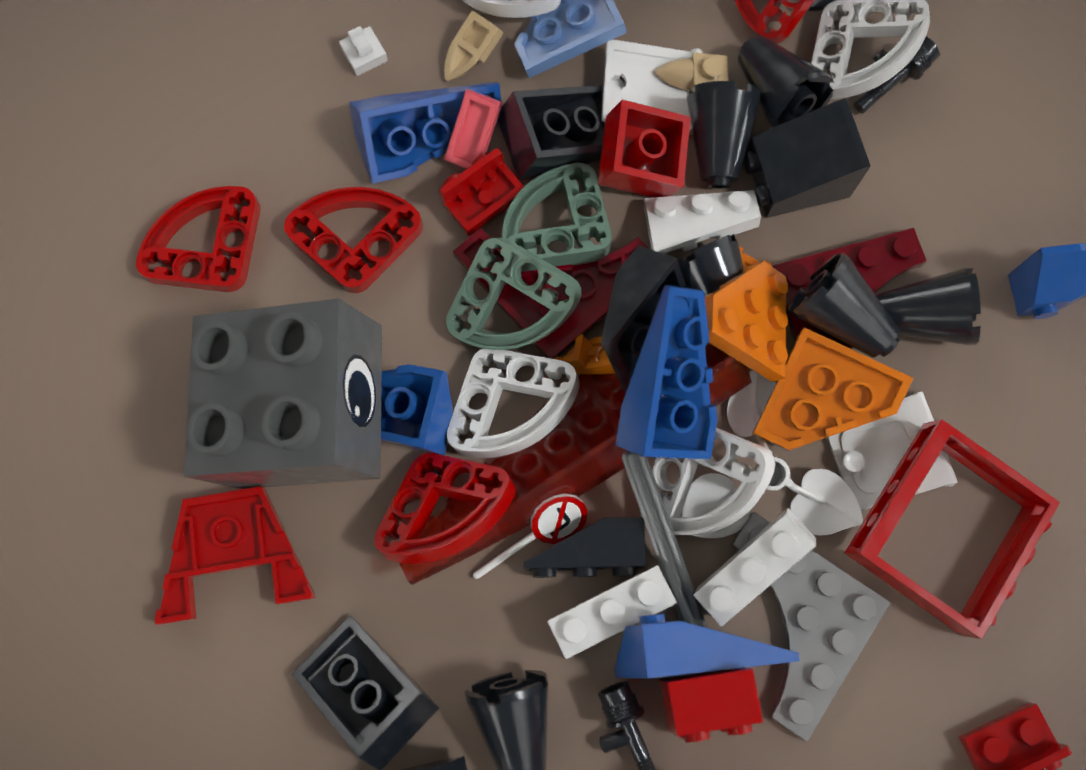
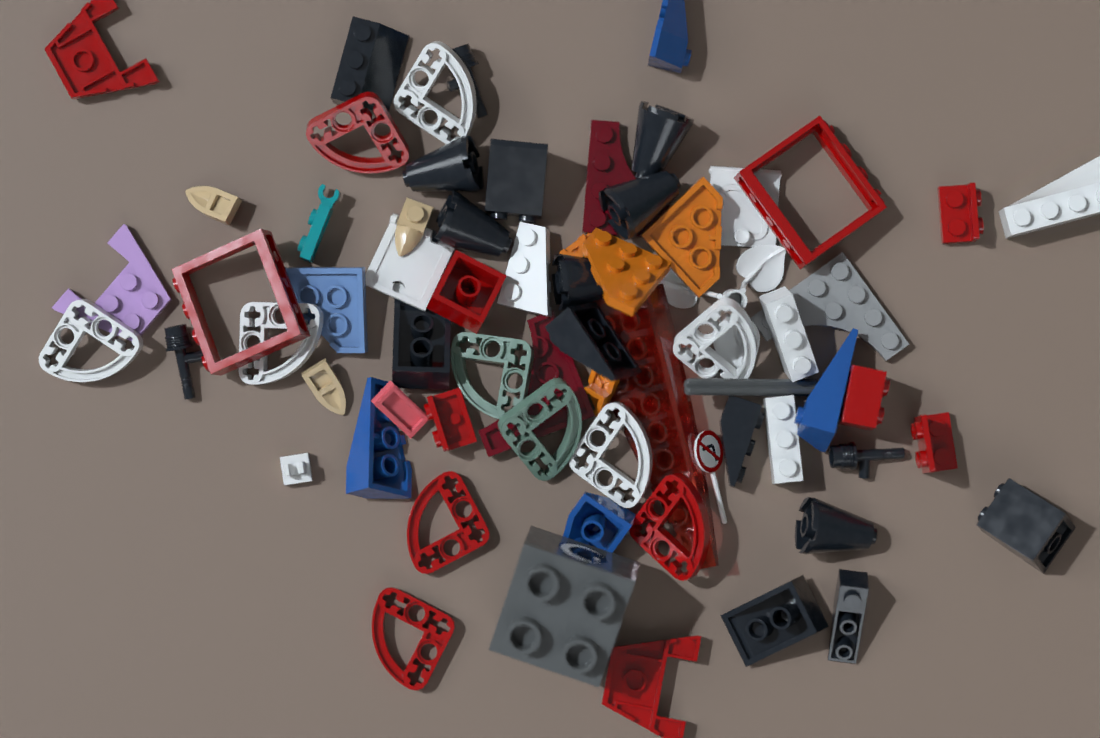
camera: 65 degrees left, 10 degrees up
(669, 395) = (664, 350): blue wedge -> none

